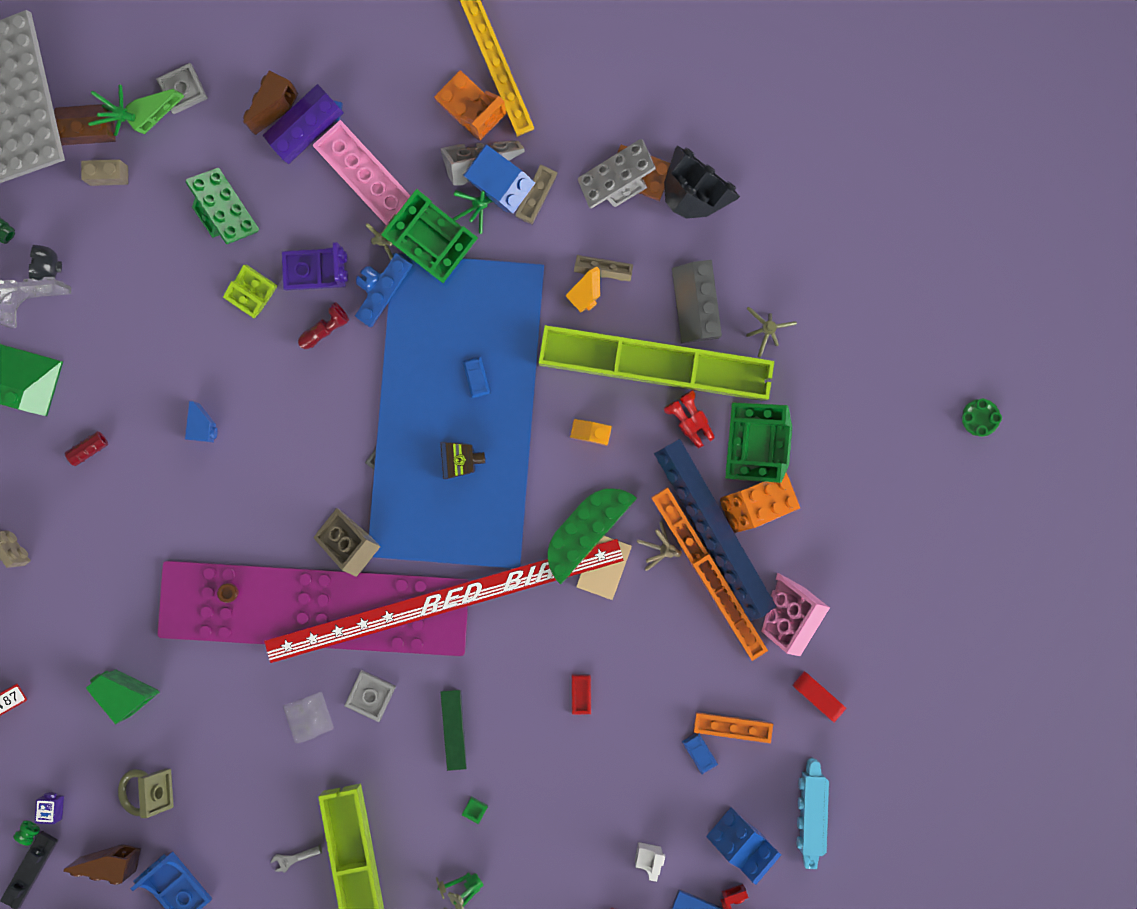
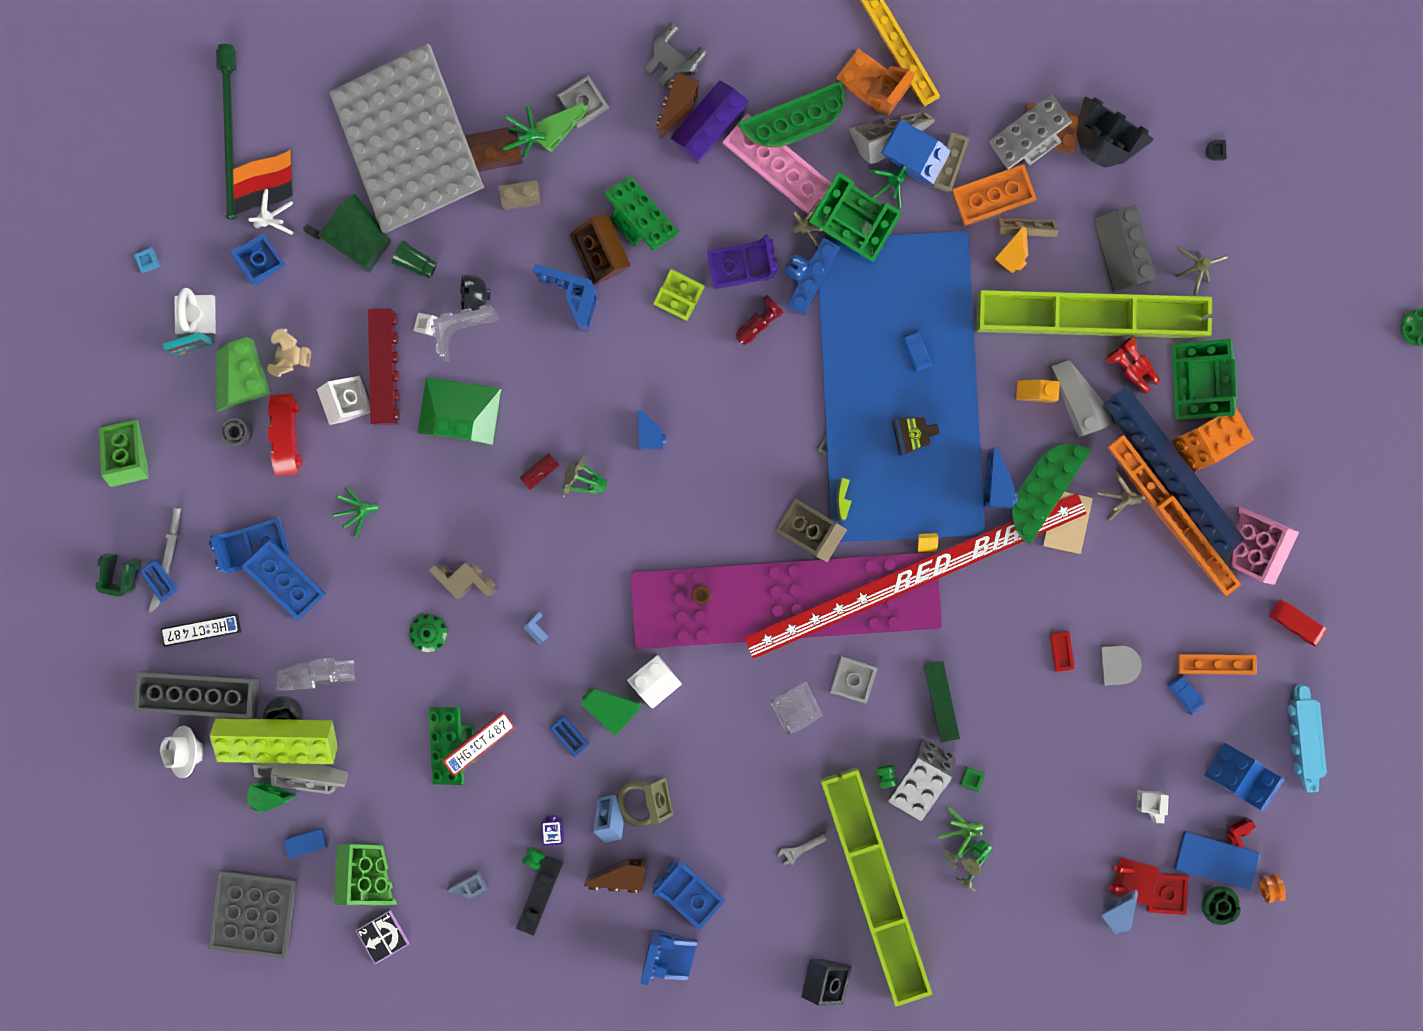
camera: 10 degrees left, 0 degrees up
(58, 606) = (534, 630): none -> medium blue tile
(91, 717) = (567, 733): none -> blue tile
(105, 805) = (608, 819): none -> medium blue slope
(139, 470) = (596, 483): none -> plant
(146, 291) = (580, 305): none -> blue bracket
(170, 672) = (654, 681): none -> white slope
(177, 235) = (600, 249): none -> reddish brown slope
(268, 54) = (670, 59): none -> dark grey connector
(376, 521) = (842, 504): none -> lime slope
(387, 130) = (795, 118): none -> green plate
(389, 798) = (887, 776): none -> green wheel
(425, 805) = (924, 780): none -> bracket
(461, 569) = (927, 542): none -> yellow tile
(462, 861) = (968, 830): none -> bright green plant
(537, 523) = (999, 488): none -> blue slope
(574, 232) = (994, 195): none -> orange plate
(634, 446) = (1081, 400): none -> light grey wedge
(636, 715) = (1119, 665): none -> light grey tile
(802, 216) = (1216, 150): none -> black tile

